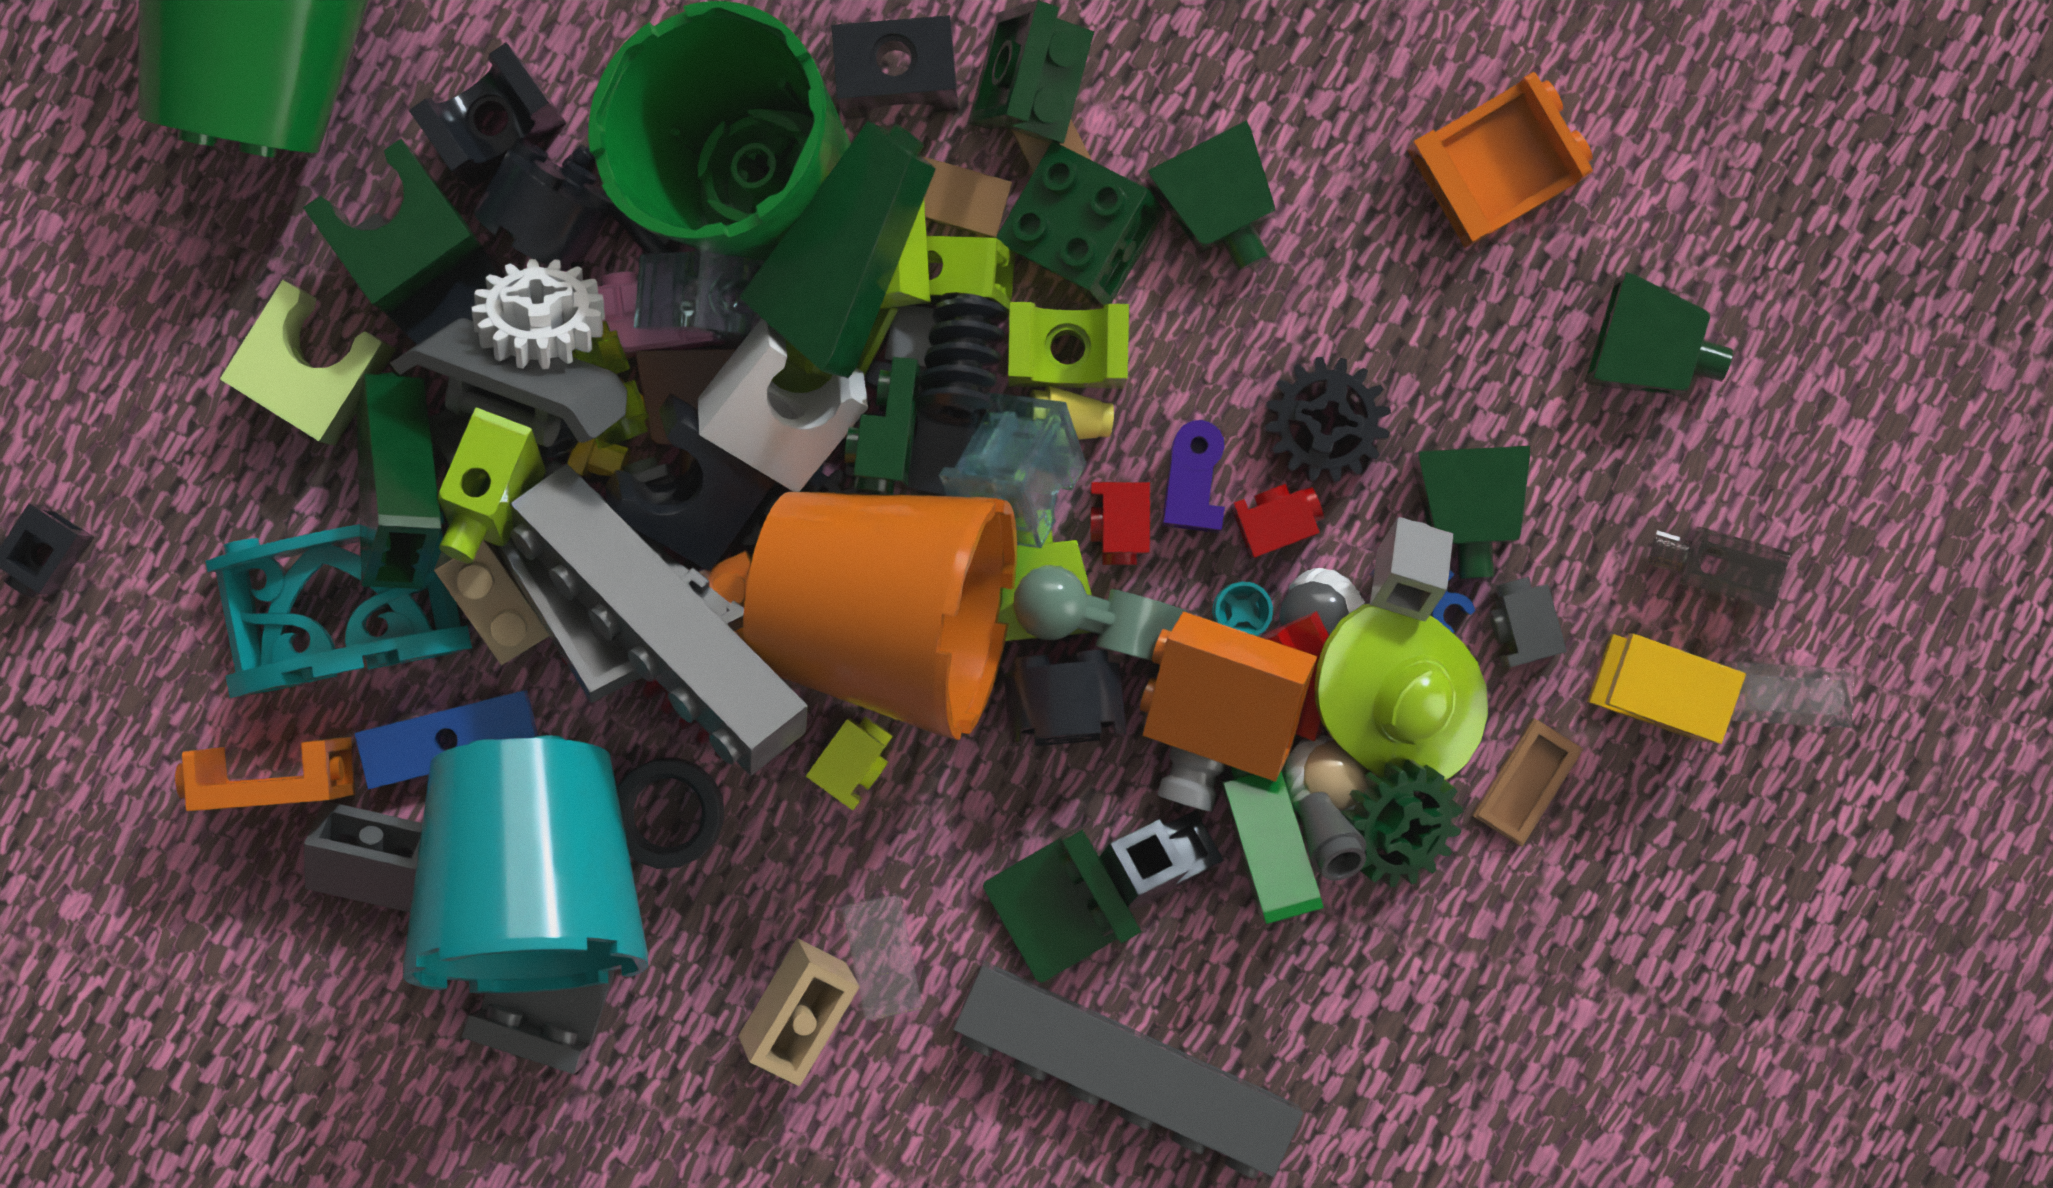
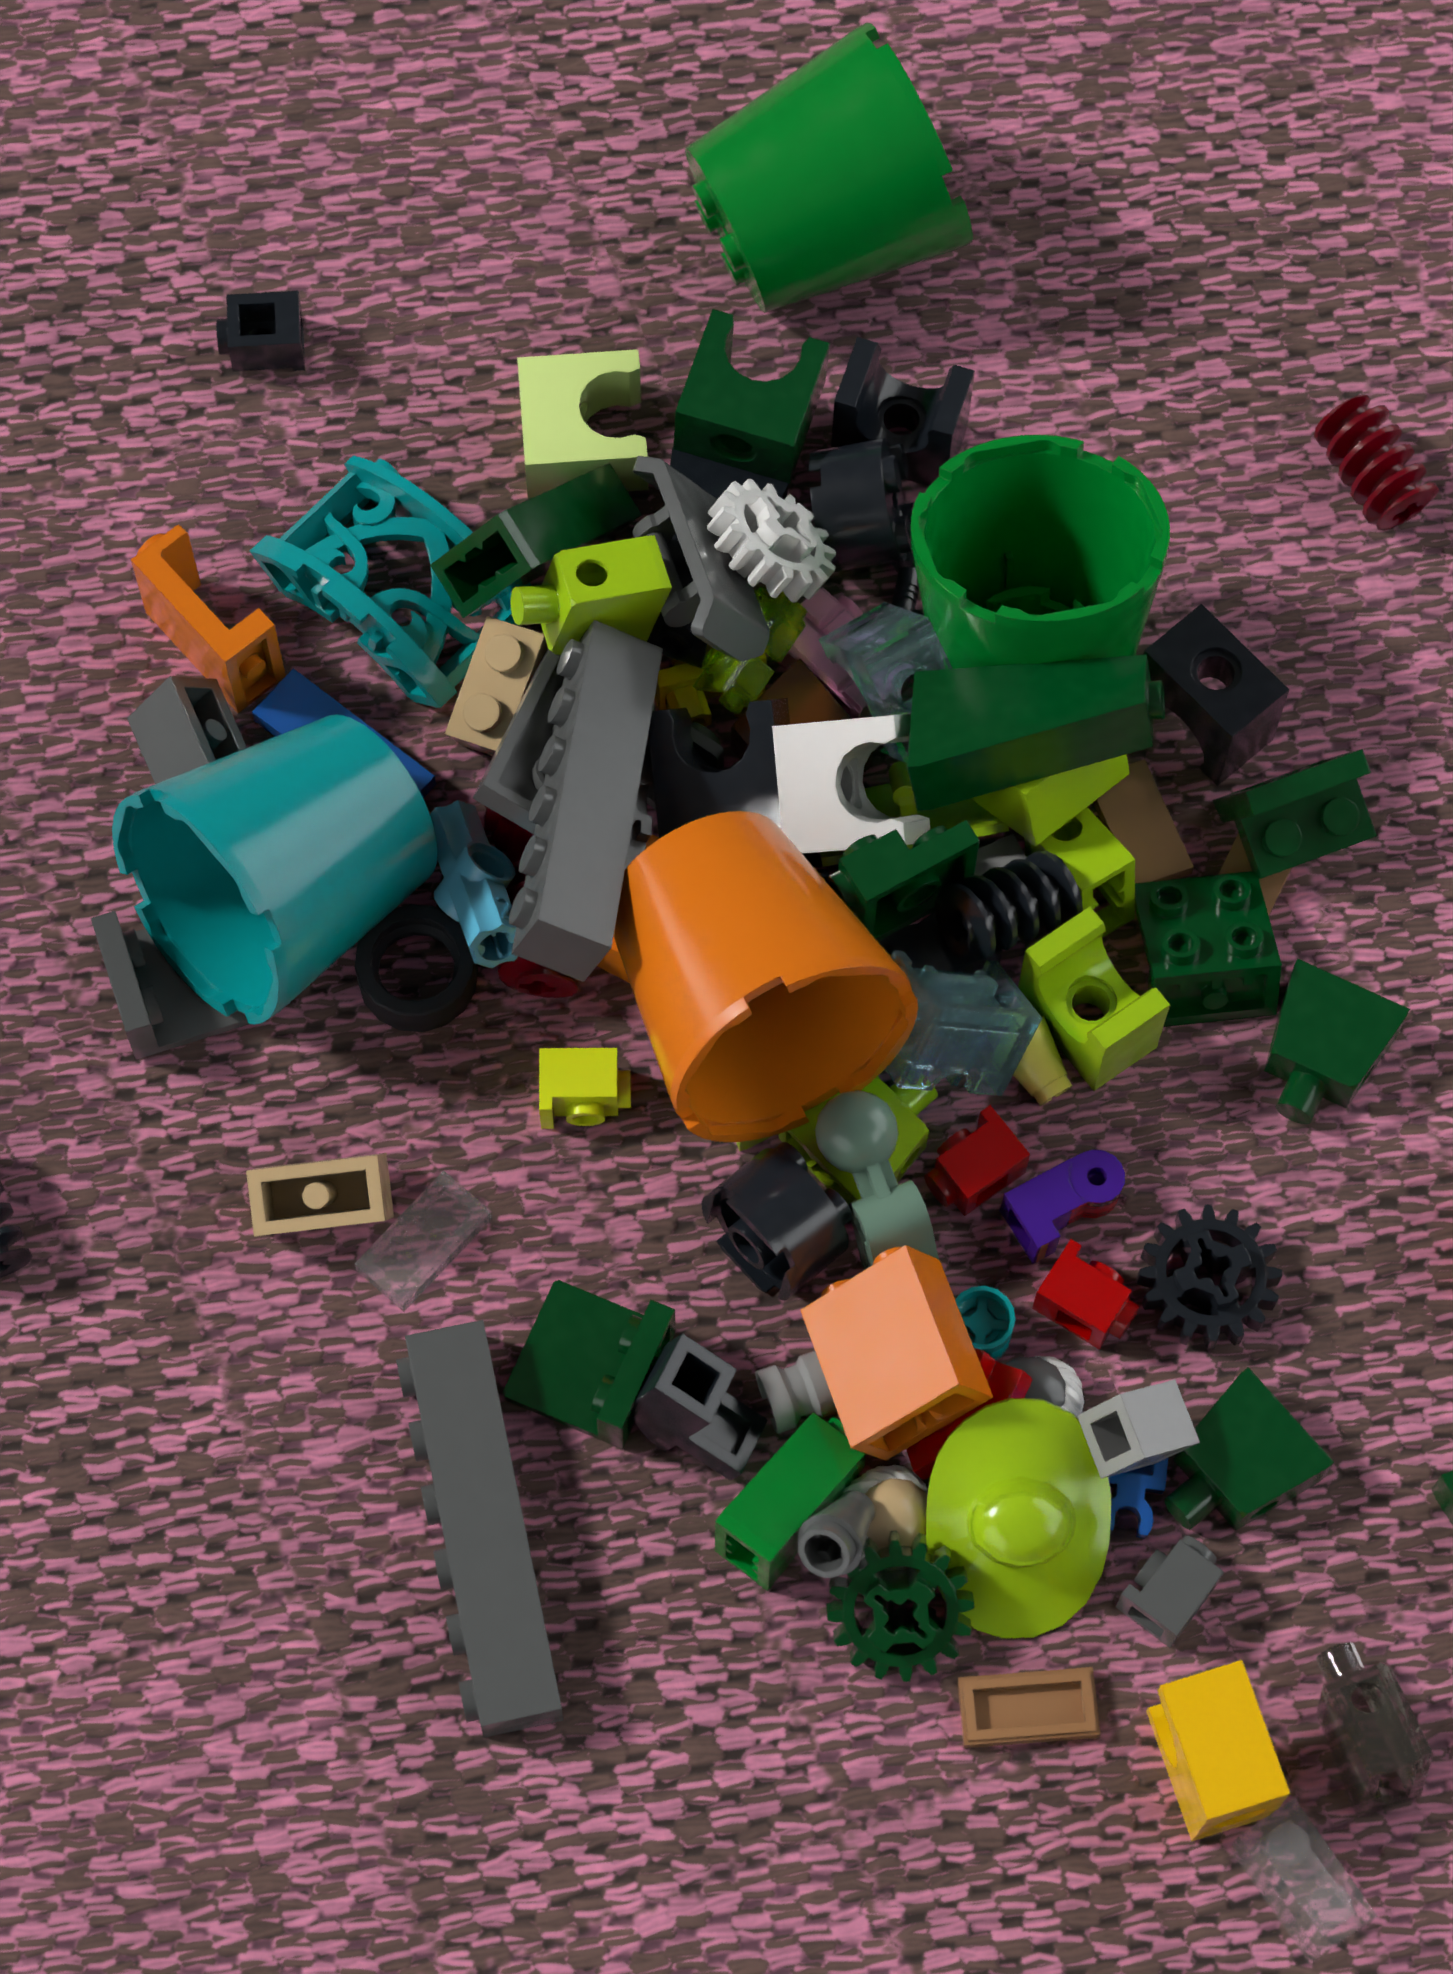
camera: 50 degrees right, 20 degrees down
(638, 730) = (474, 883): none -> medium azure piece

